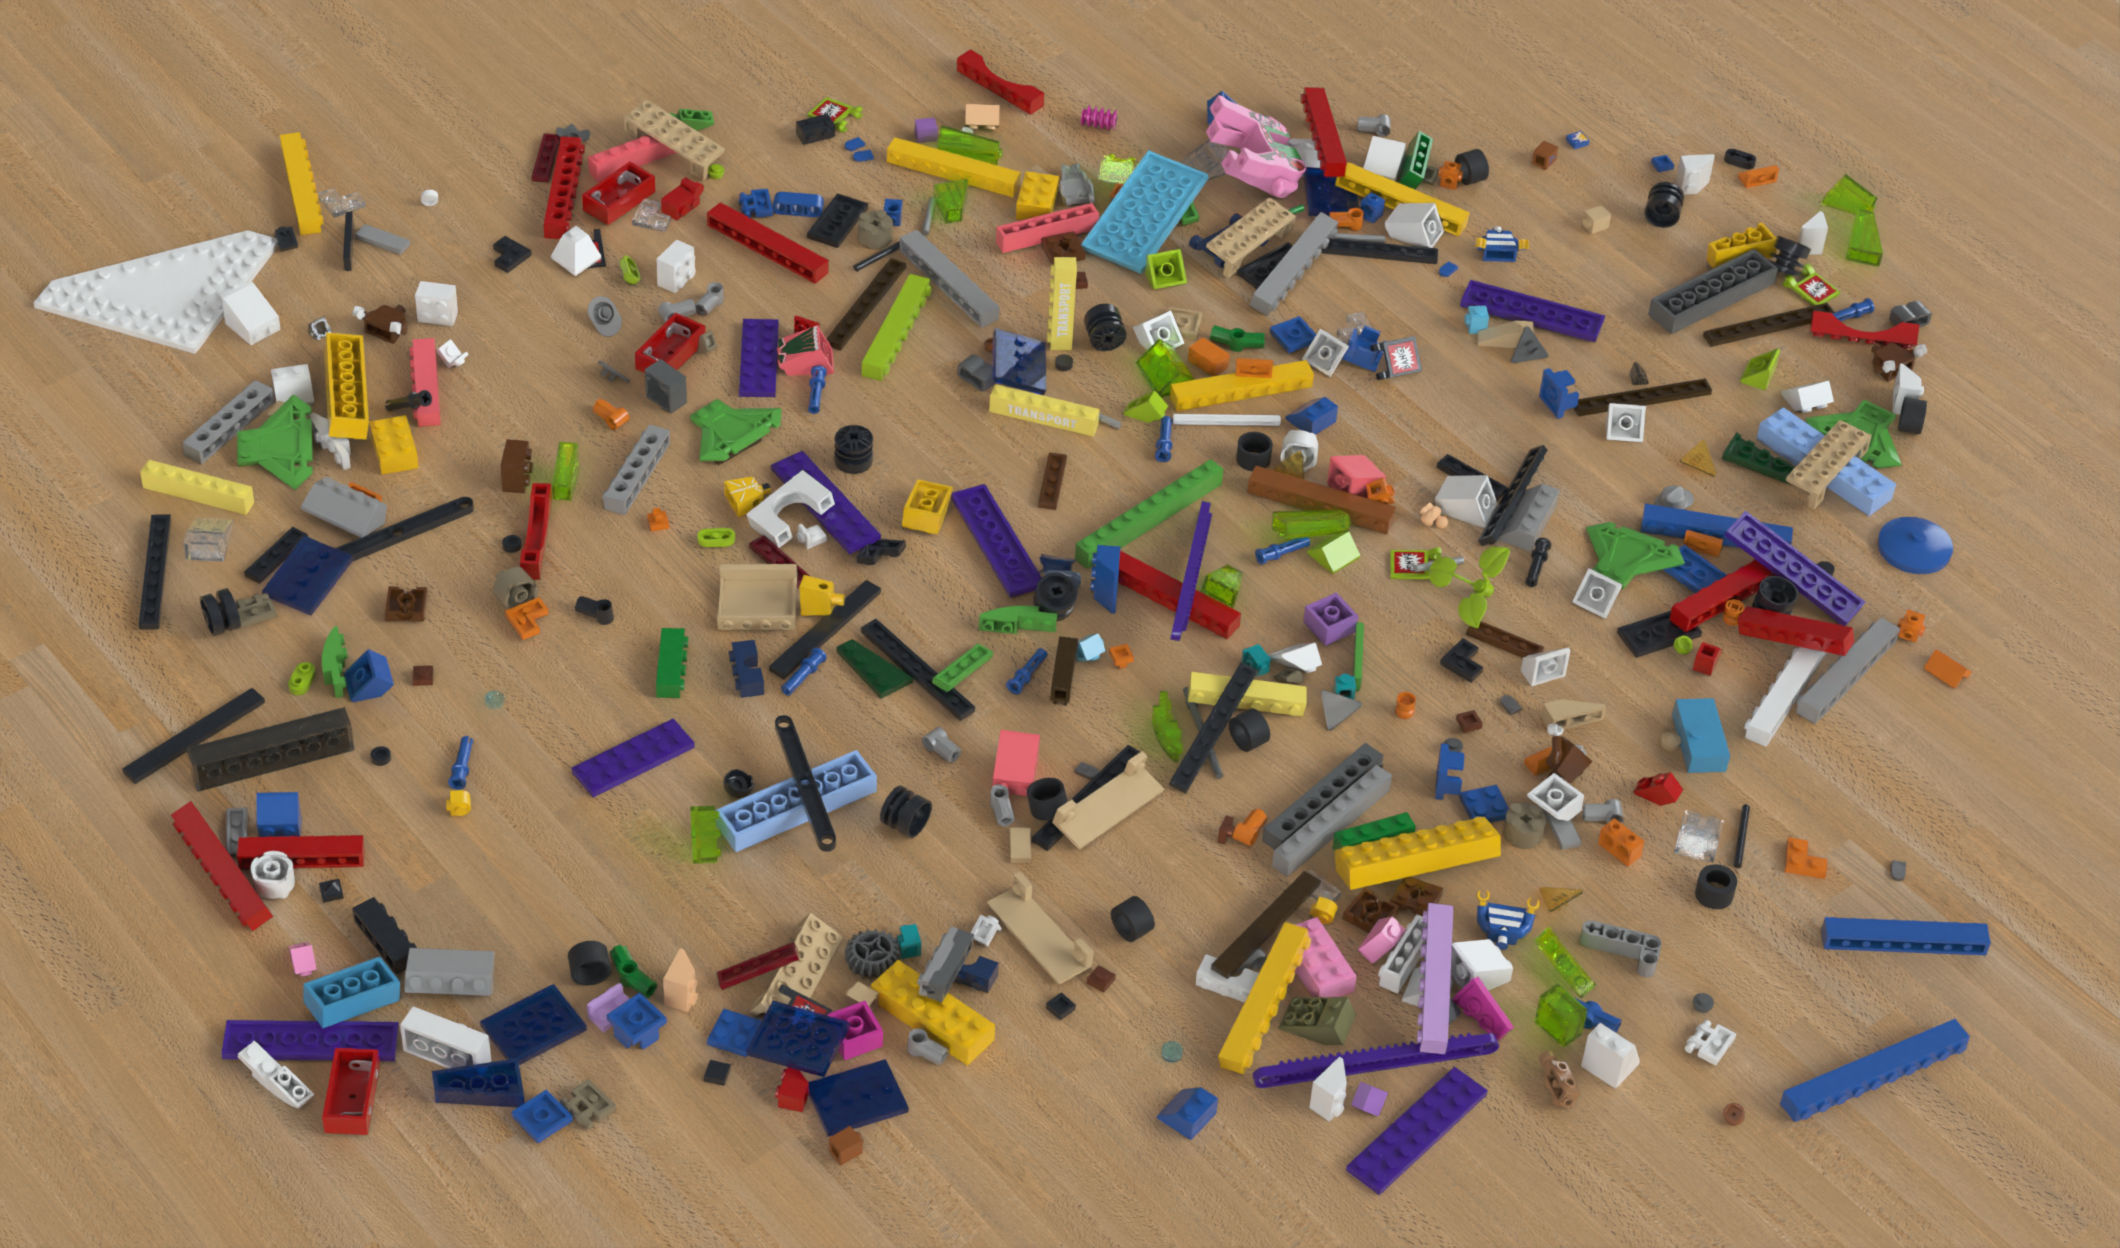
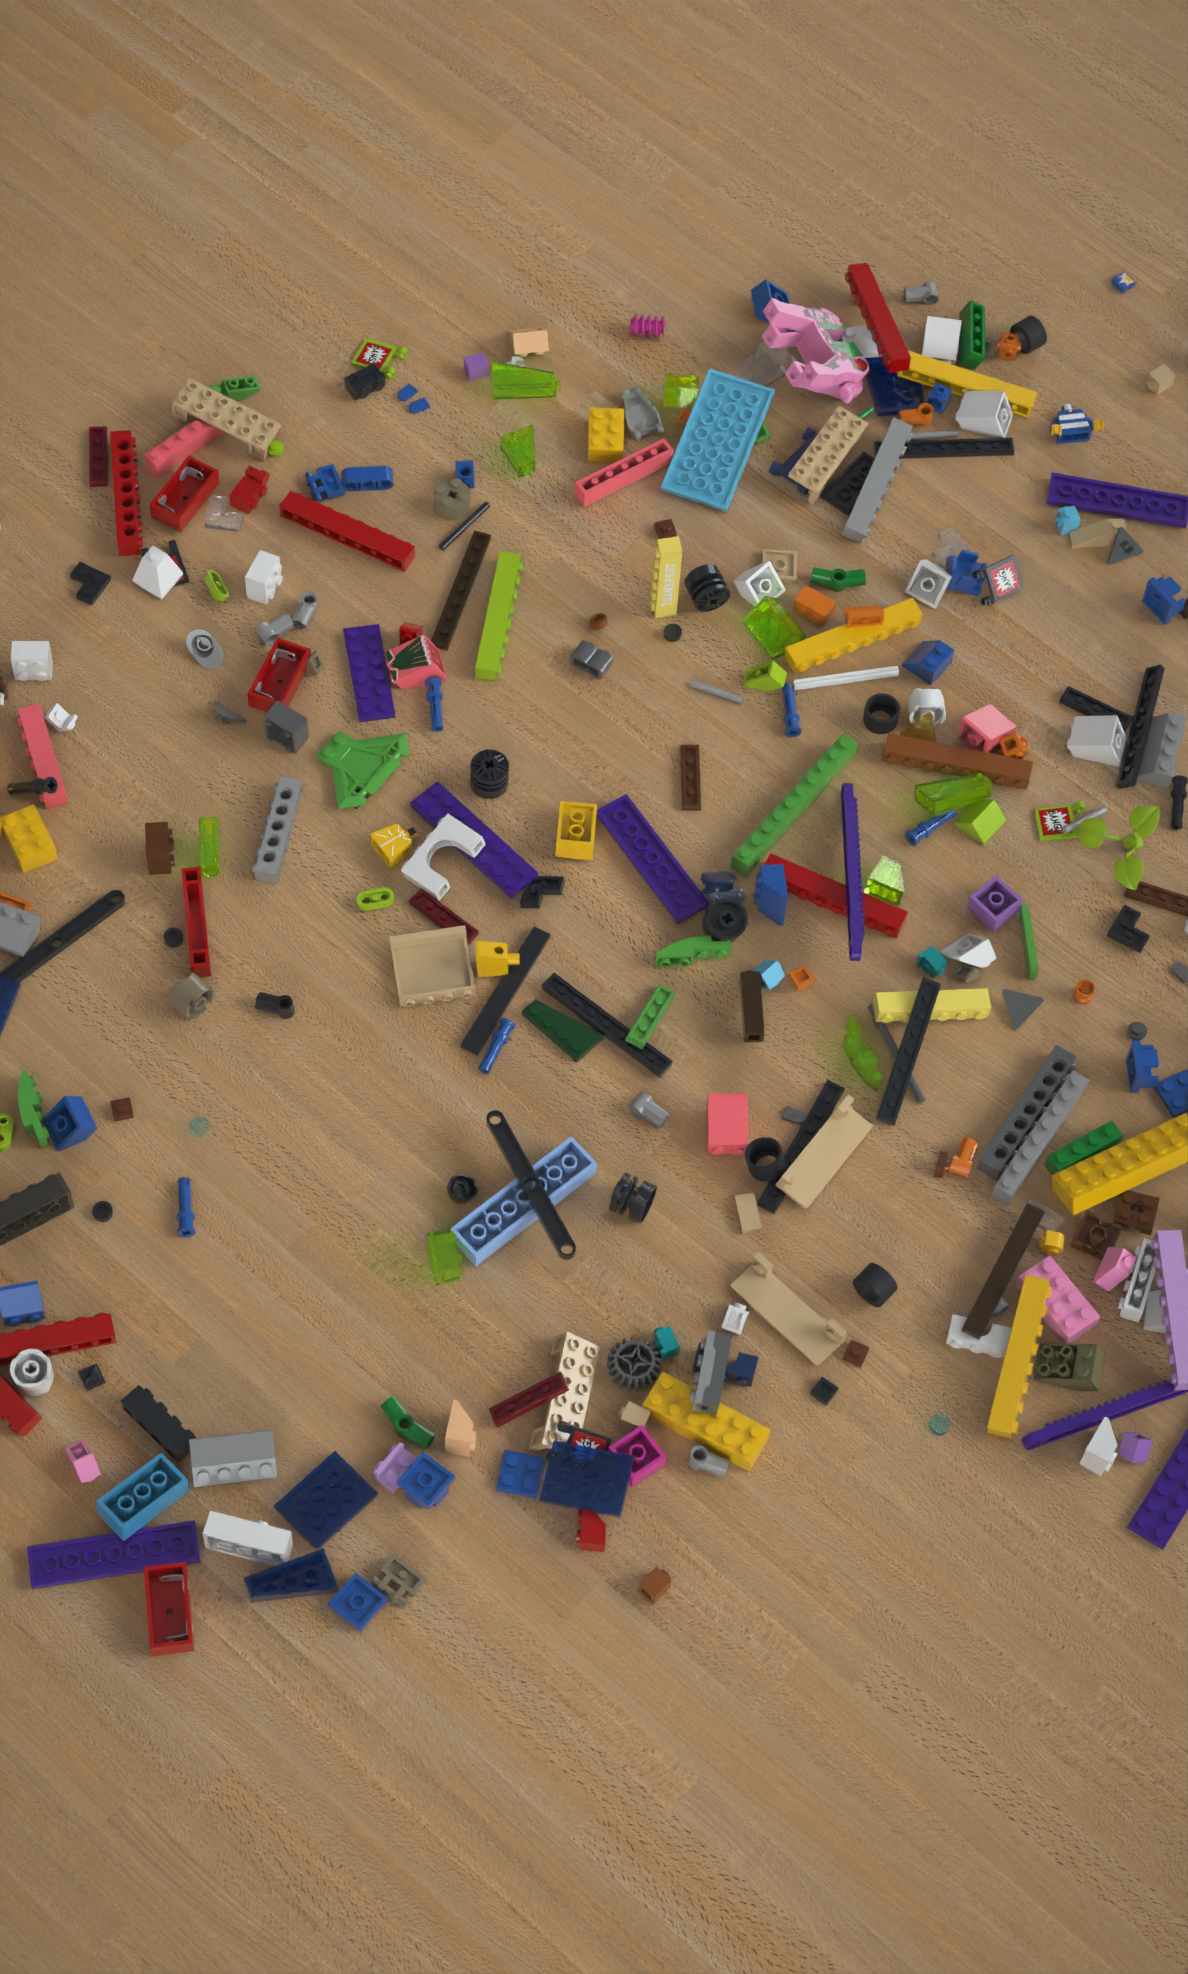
camera: 10 degrees left, 15 degrees up
(275, 1078) = (89, 1603): white slope -> none
(415, 608) = (77, 1037): reddish brown brick -> none
(459, 803) = (194, 1256): yellow plate -> none
(523, 617) = (205, 1025): orange plate -> none
(572, 131) = (118, 422): dark grey plate -> none
(589, 963) = (365, 1423): black piece -> none
(614, 417) = (241, 768): orange piece -> none
(633, 757) = (351, 1172): dark purple plate -> none
(657, 520) = (312, 886): orange tile -> none
(670, 663) = (364, 1057): green brick -> none
(717, 1072) = (513, 1522): black tile -> none
(749, 679) = (445, 1066): dark blue arch -> none
(812, 536) = (468, 881): white bracket -> none
(837, 220) = (410, 491): black tile -> none
(857, 1097) = (653, 1527): clear blue plate -> none
(928, 218) = (500, 470): light grey bar -> none
(949, 278) = (538, 547): light grey brick -> none
(953, 167) = (513, 409): yellow brick -> none
(1001, 805) = (722, 1173): light grey piece -> none
(1019, 361) = (630, 640): clear blue plate -> none
(1022, 96) = (566, 310): red arch -> none
(1038, 658) = (710, 1015): blue pin -> none
(1044, 410) = (666, 696): light yellow brick -> none
(1068, 242) = (650, 486): reddish brown brick -> none
(1165, 269) = (751, 506): lime slope -> none
(1189, 1111) = (968, 1489): blue slope -> none
(1249, 730) = (942, 1047): black piece -> none
(1293, 334) = (892, 564): blue plate -> none
(1345, 683) = (1023, 979): teal brick -> none
(1433, 513) = (1067, 762): light nougat animal -> none
(1448, 269) = (1025, 460): blue piece -> none
(1469, 721) = (1147, 1000): copper plate -> none
(1544, 155) = (1095, 307): dark orange brick -> none

